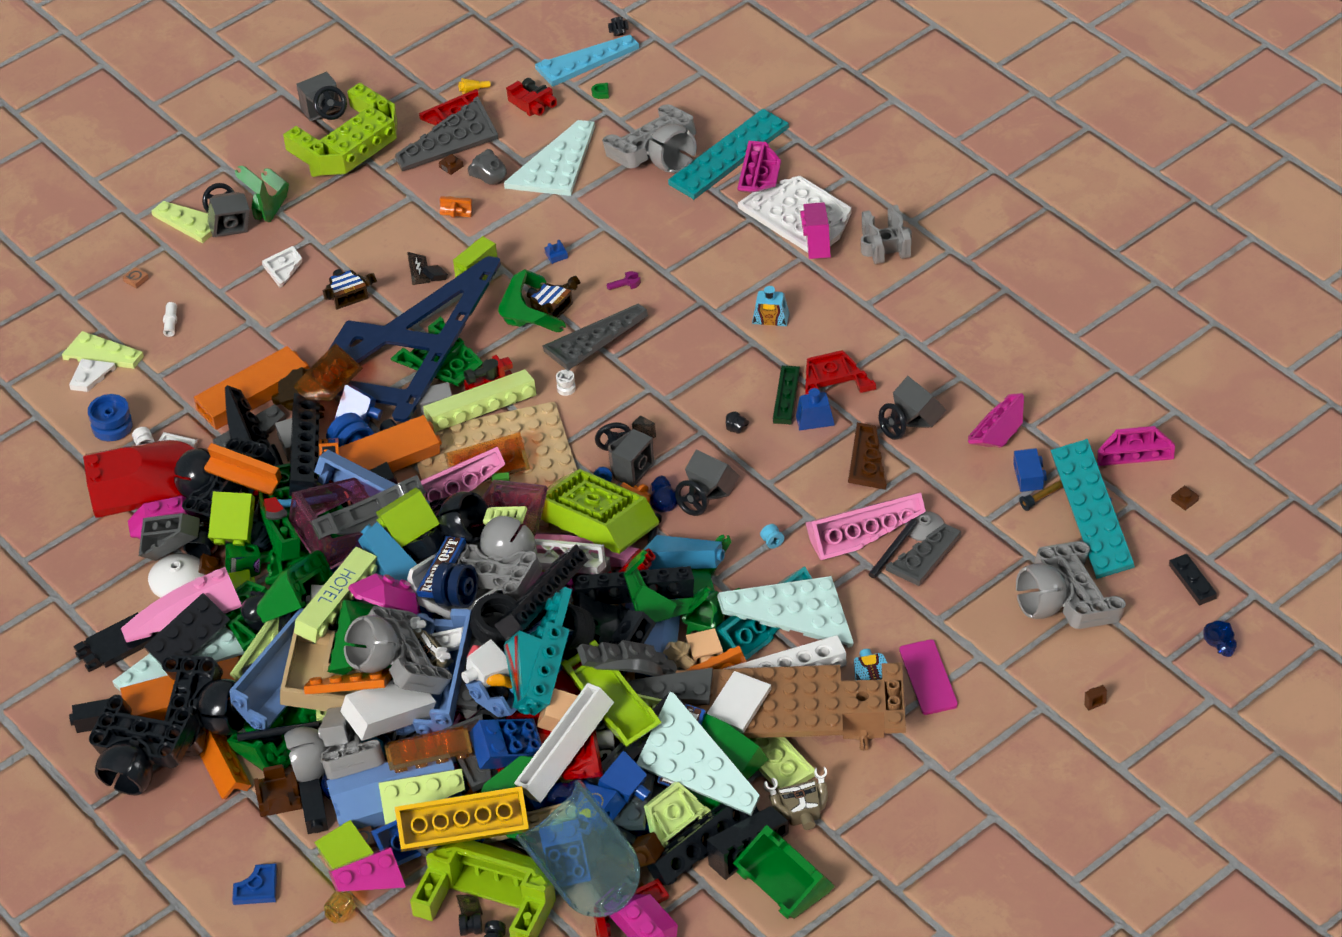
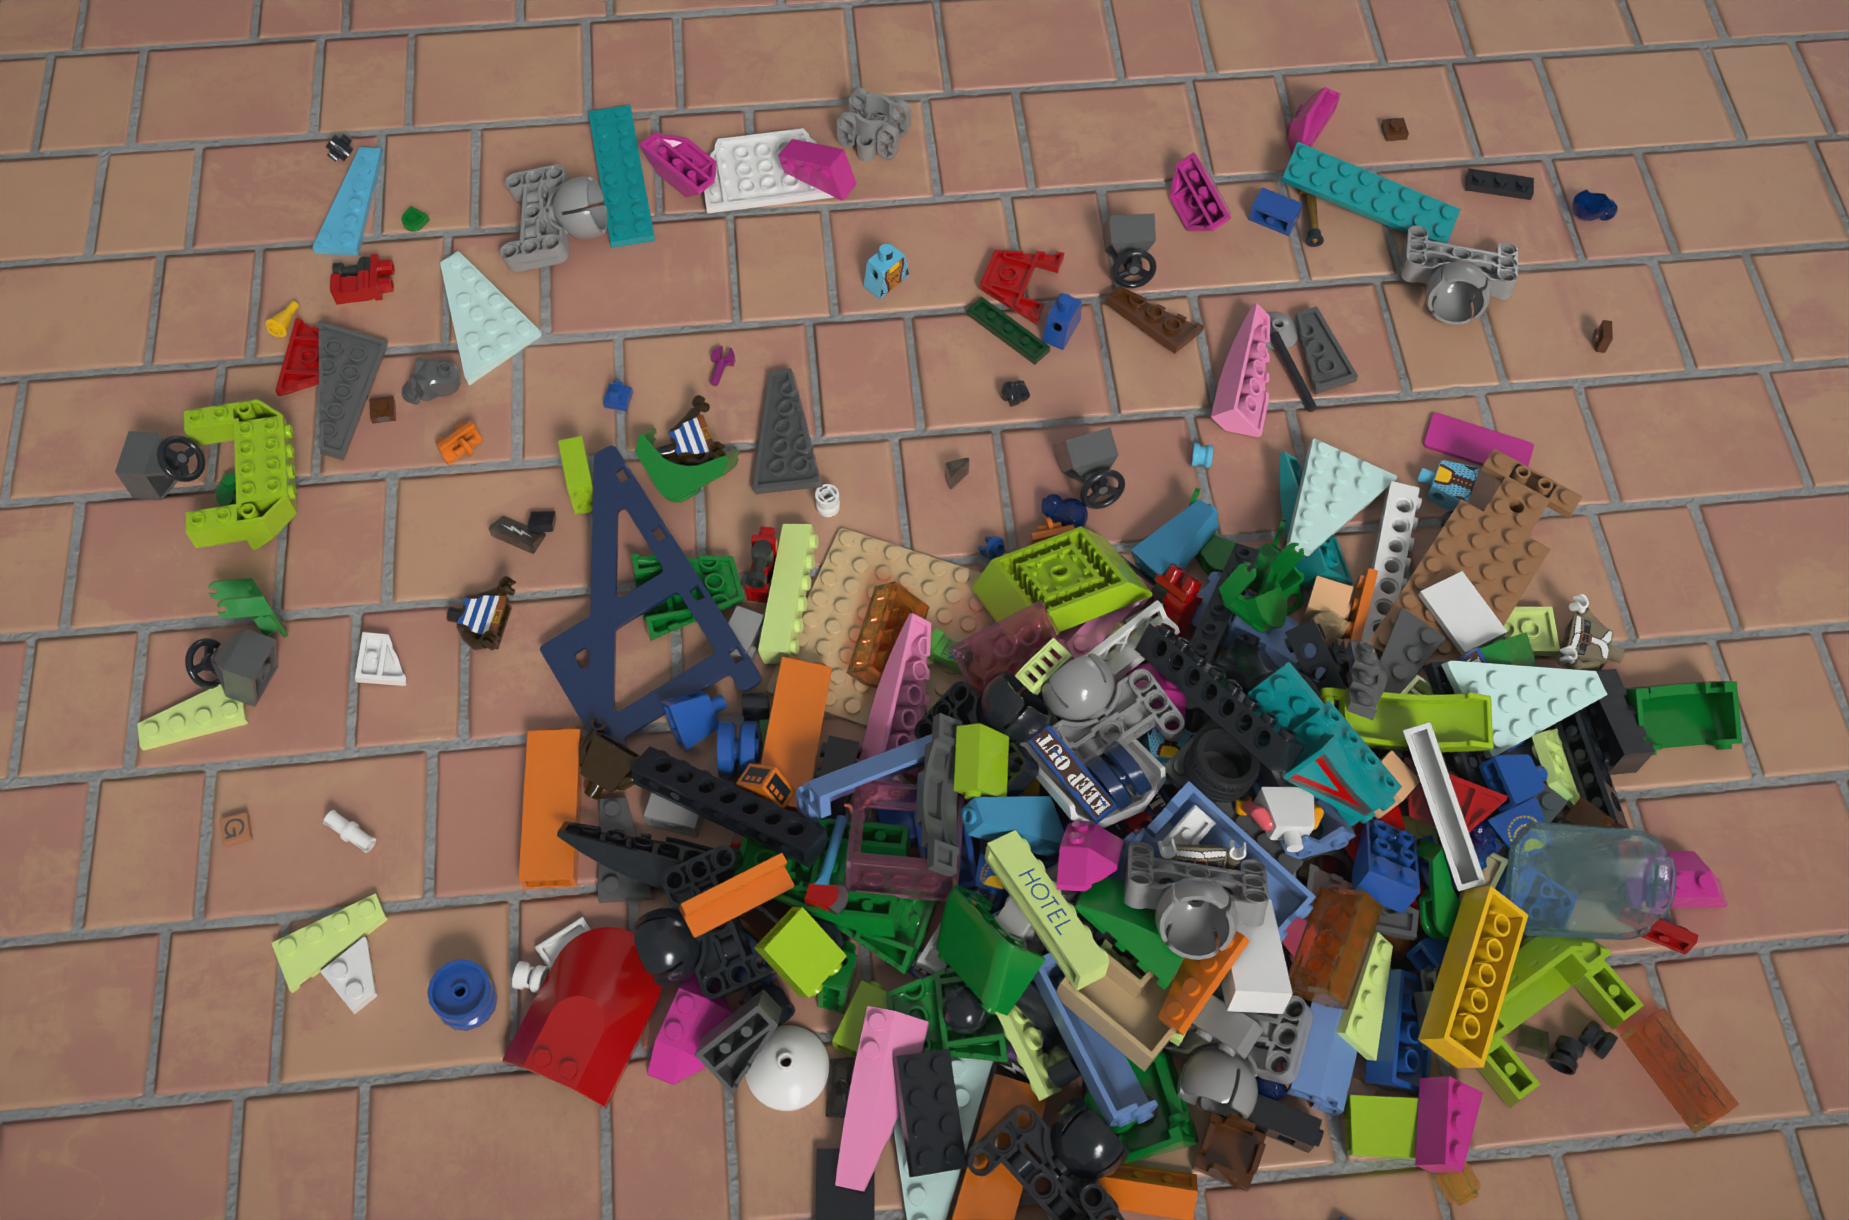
camera: 60 degrees left, 15 degrees up
(208, 564) = (806, 1020): reddish brown plate -> none
(273, 731) = (1164, 1097): black bar -> none
(328, 375) = (633, 716): clear orange slope -> none
(629, 452) = (996, 507): dark grey piece -> none

